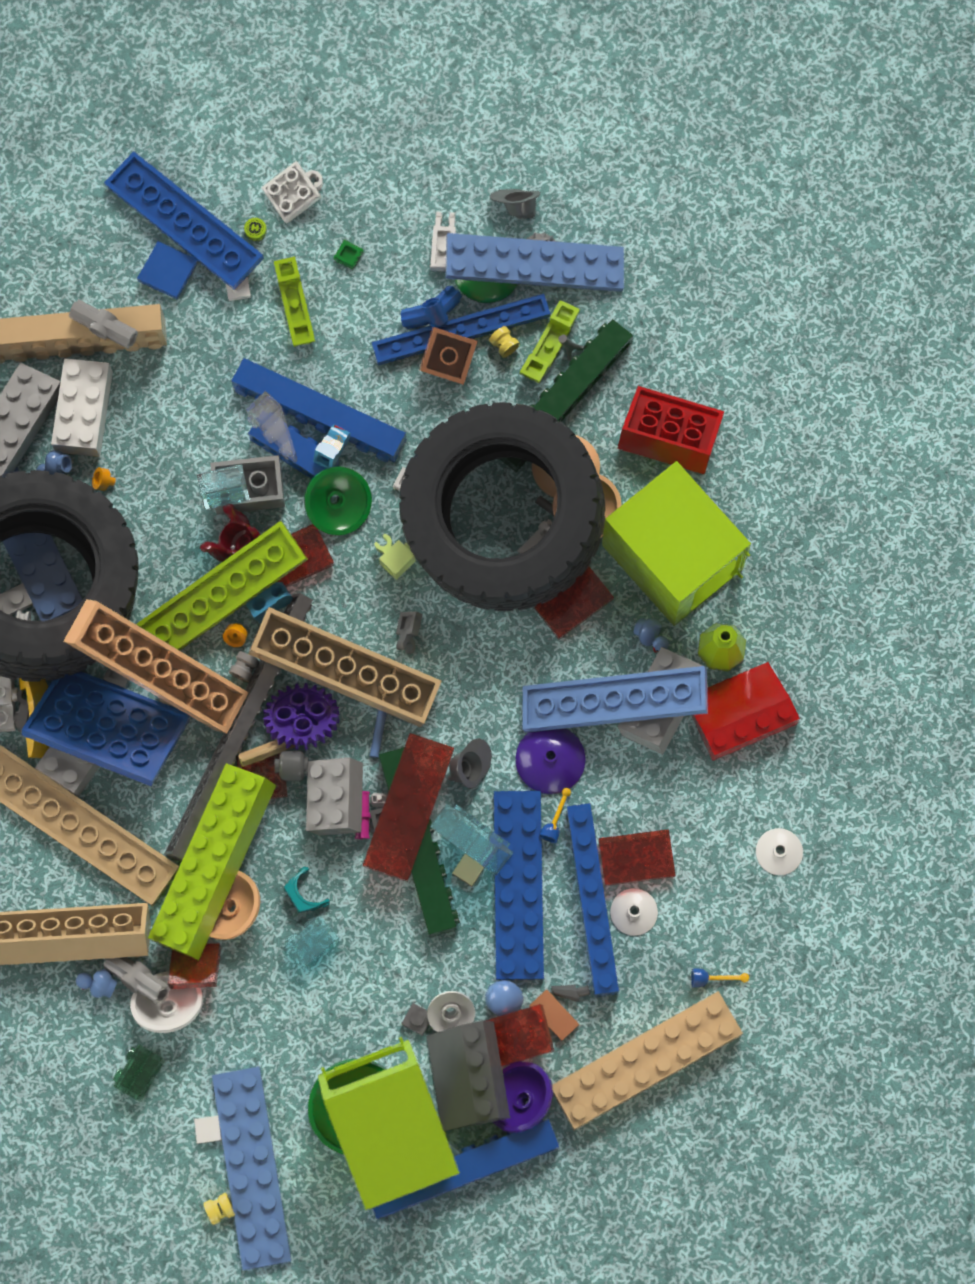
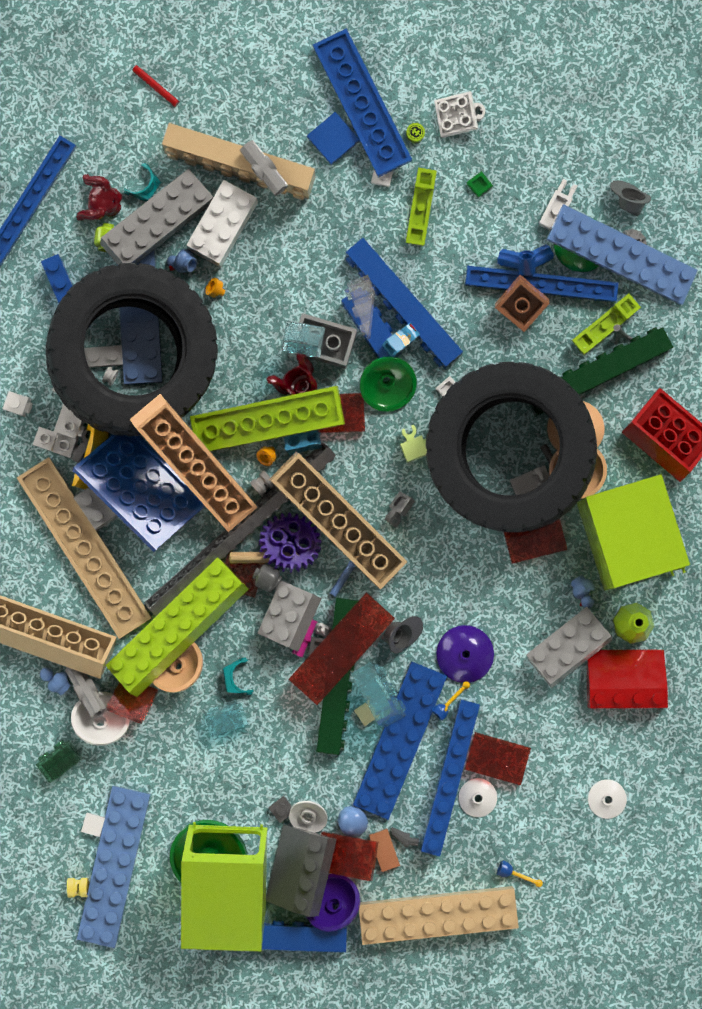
camera: 20 degrees right, 10 degrees up
(502, 339) = (570, 308): light yellow wheel -> none
(615, 699) = (533, 634): medium blue plate -> none

